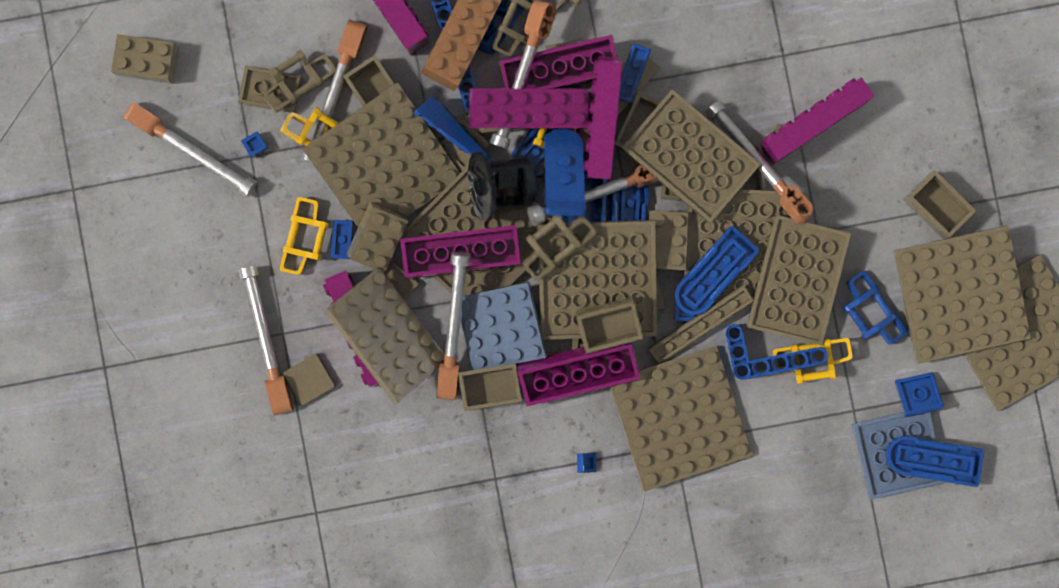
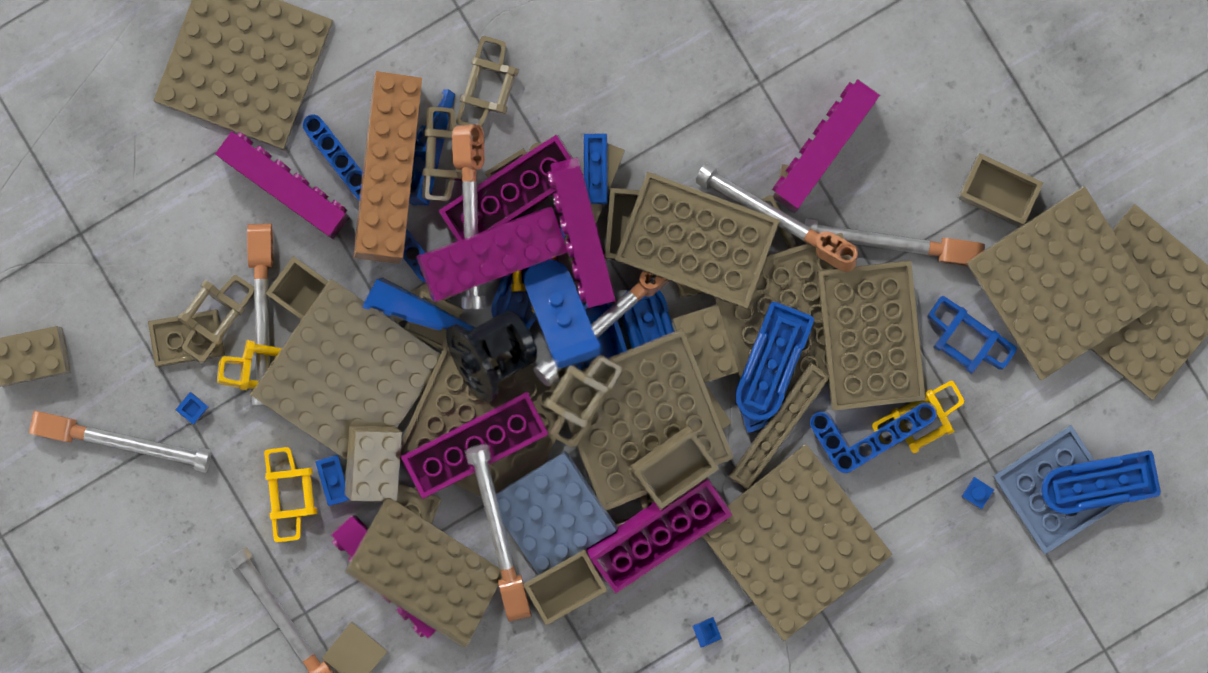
camera: 25 degrees left, 0 degrees up
(835, 432) = (977, 493): none -> blue plate
(882, 238) = (949, 250): none -> piece
(919, 394) = (1056, 414): blue tile -> none

